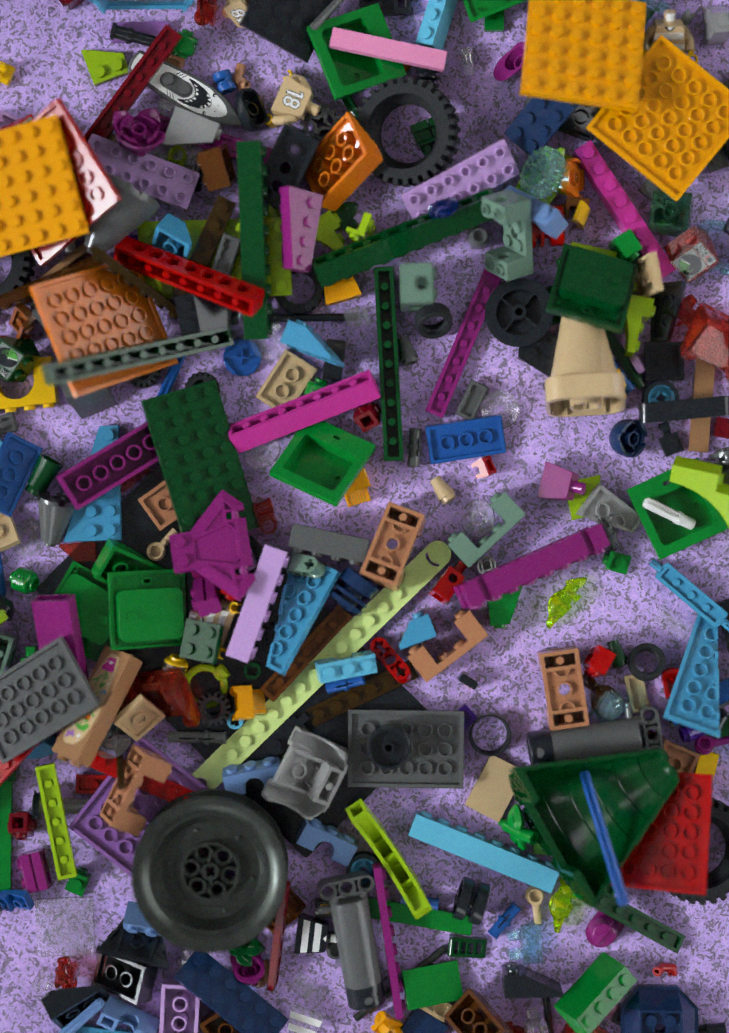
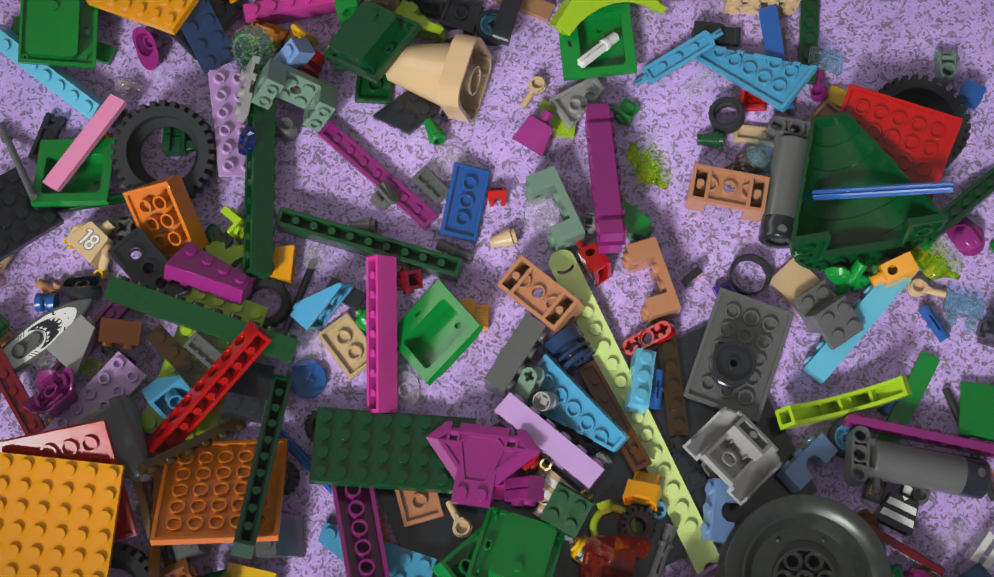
camera: 70 degrees left, 15 degrees down
(251, 676) = (618, 479): dark green bush -> none
(265, 514) = (466, 408): clear red piece -> none
(293, 587) = (541, 399): none -> light grey wheel
(410, 279) = (307, 194): sand green plate -> none
(417, 630) = (627, 303): dark azure slope -> none
(435, 330) = (335, 192): black tyre -> none
(442, 360) = (387, 192): none -> dark grey piece
(466, 954) = (944, 381): dark green slope -> none
(471, 900) = (907, 343): black wheel -> none
(473, 819) = (827, 314): none -> dark grey bracket
(502, 183) = (245, 96): none -> light grey wing
(508, 301) = (355, 108): black piece -> none
(527, 382) = (434, 132): none -> green cone
(541, 876) = (901, 267): none -> light orange torso
(598, 661) = (712, 151): red window -> none
(613, 464) = (536, 86): none -> tan plate
(628, 437) = (516, 63): dark blue cylinder -> none
(670, 441) = (534, 32): black plate -> none
(688, 734) = (804, 100): dark purple cone -> none

